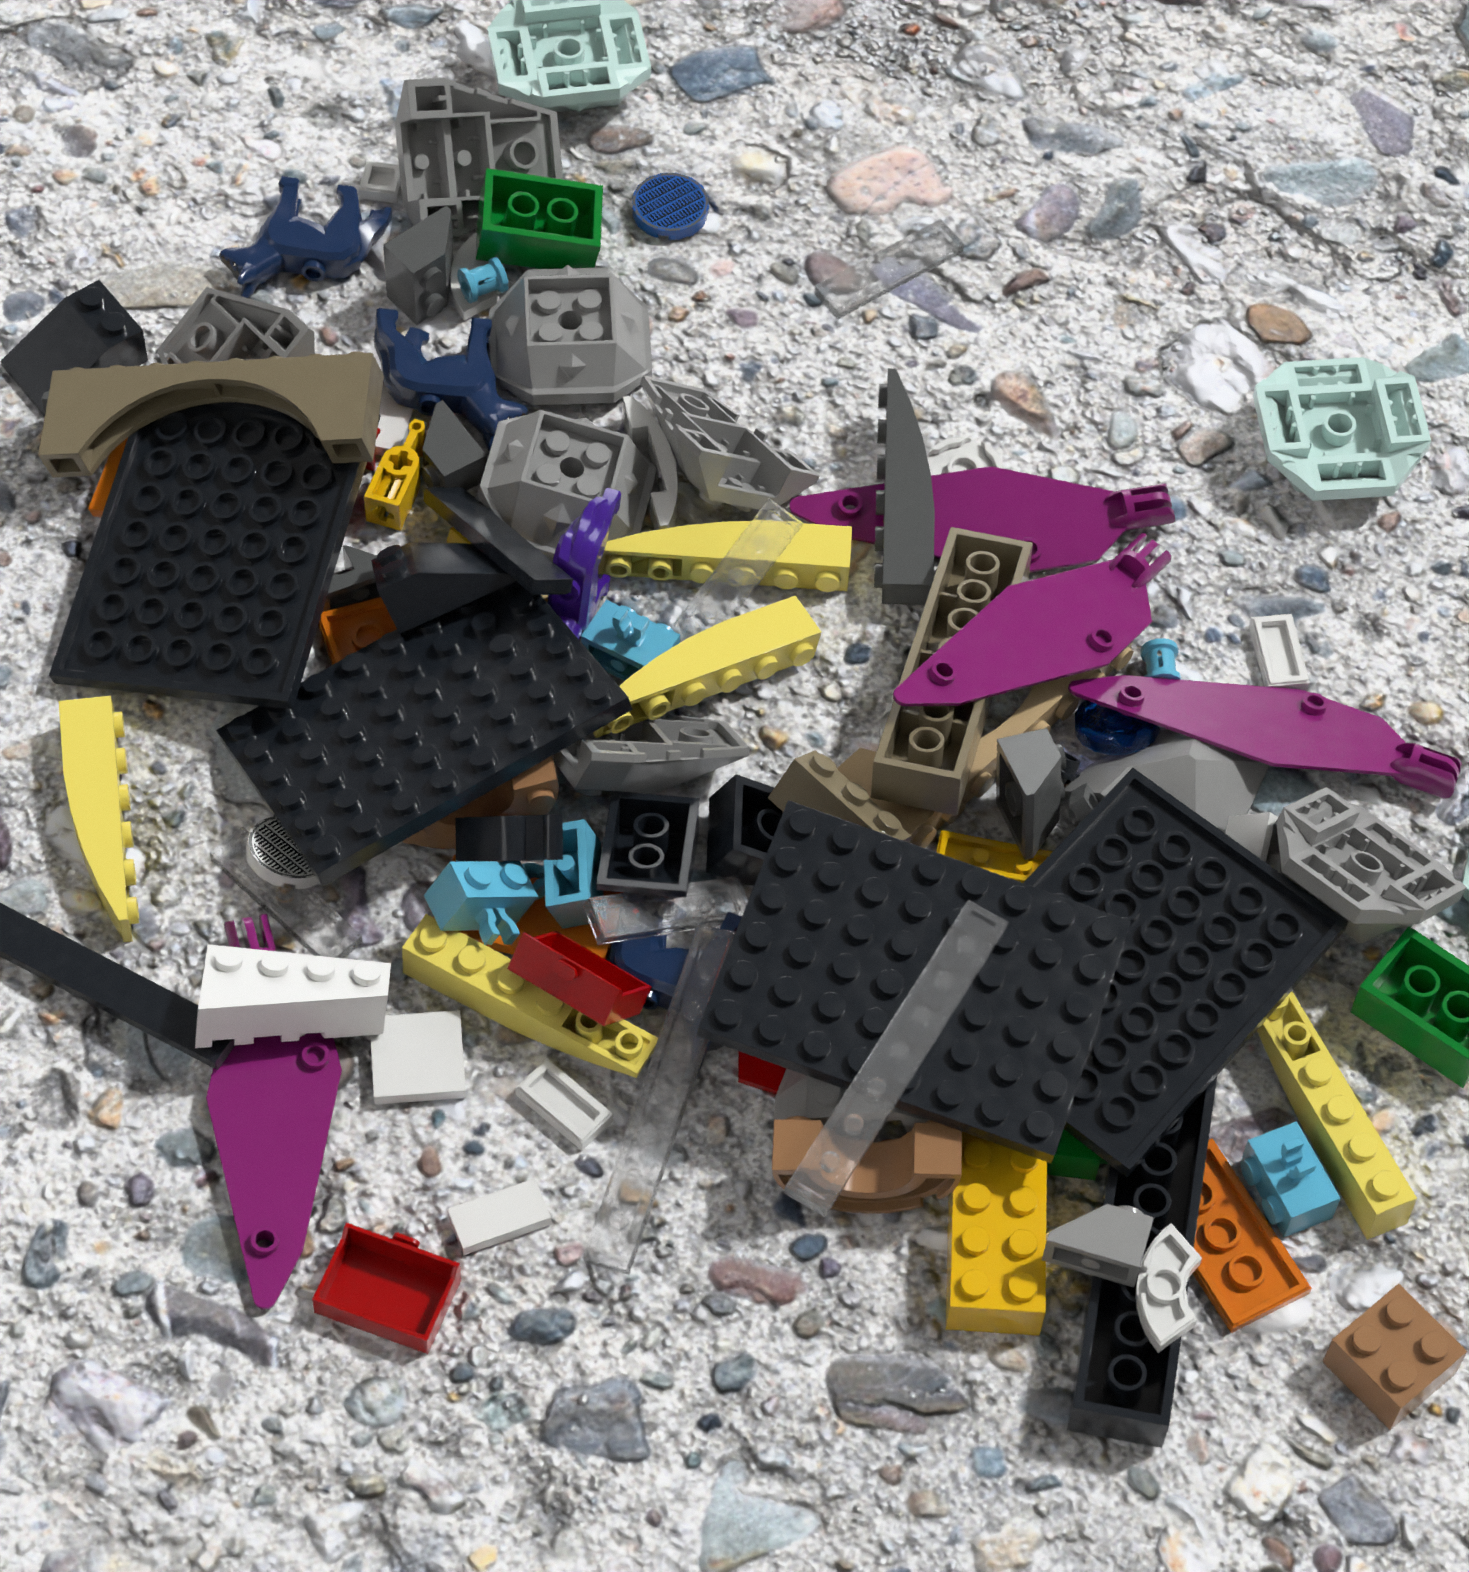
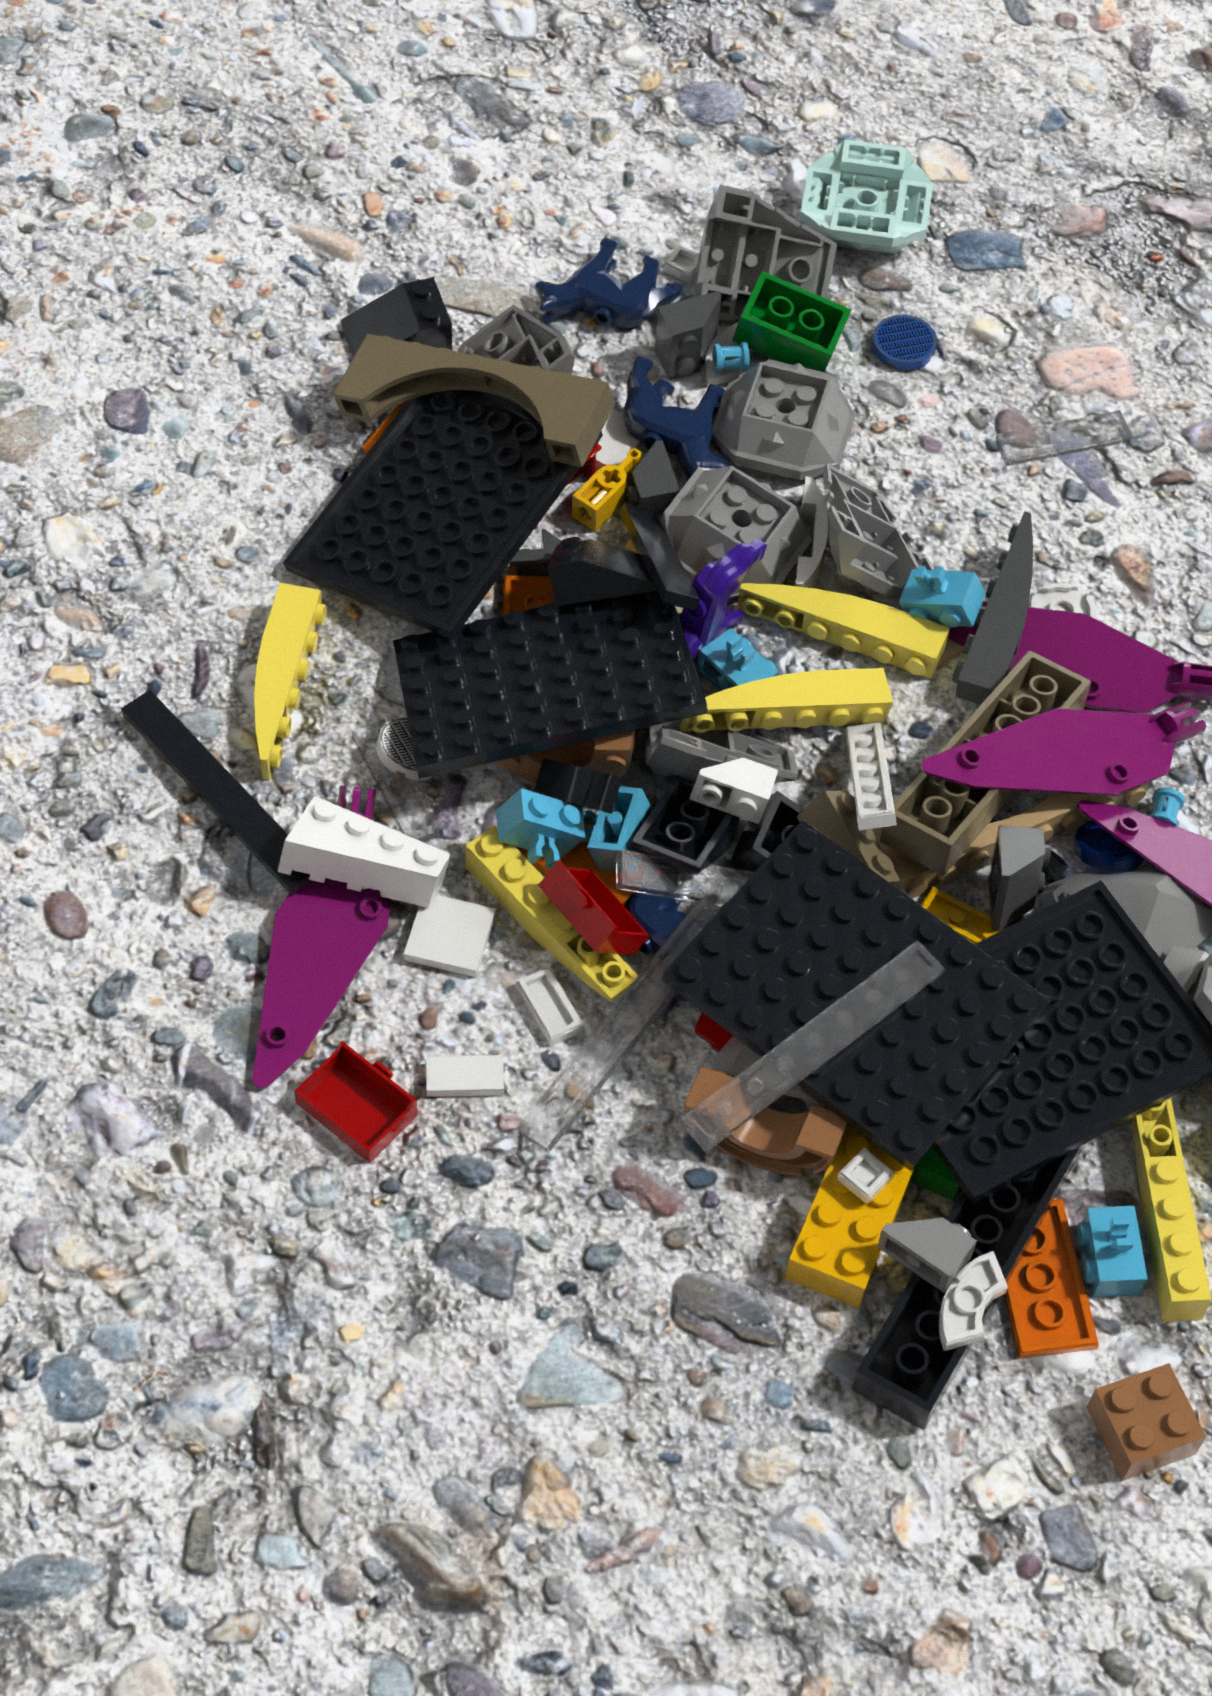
camera: 20 degrees right, 0 degrees up
(691, 785) = (736, 788): none -> white slope
(739, 570) = (846, 634): clear tile -> none
(833, 492) = (943, 596): none -> medium azure brick
(835, 726) = (870, 776): none -> white tile
(1000, 1184) = (865, 1175): none -> white tile

